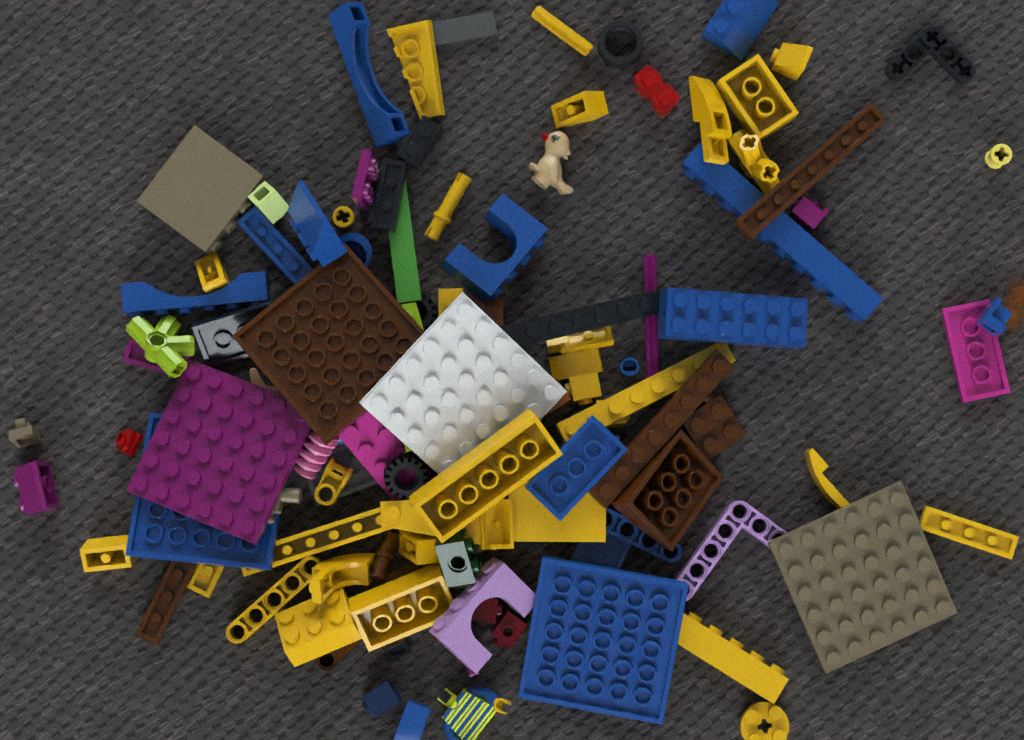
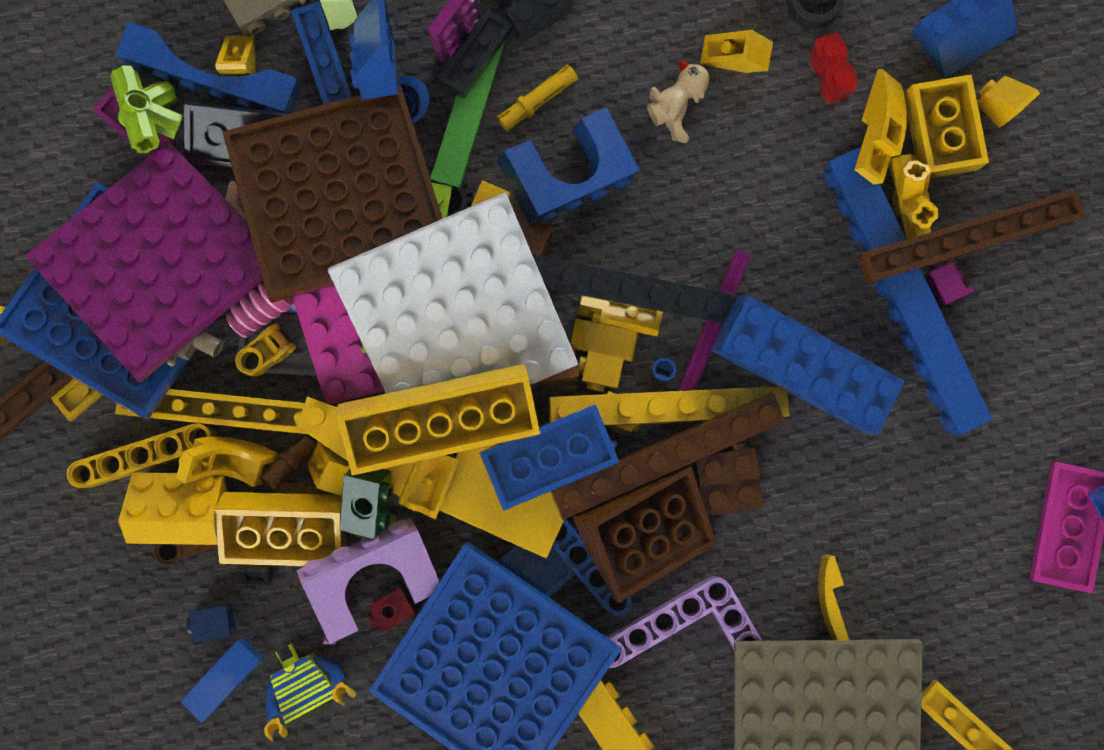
camera: 25 degrees right, 0 degrees up
(128, 441) = (59, 205): red plate -> none
(346, 210) = (407, 63): yellow bush -> none
(397, 464) = (349, 362): black tyre -> none
(488, 611) = (376, 577): dark red brick -> none

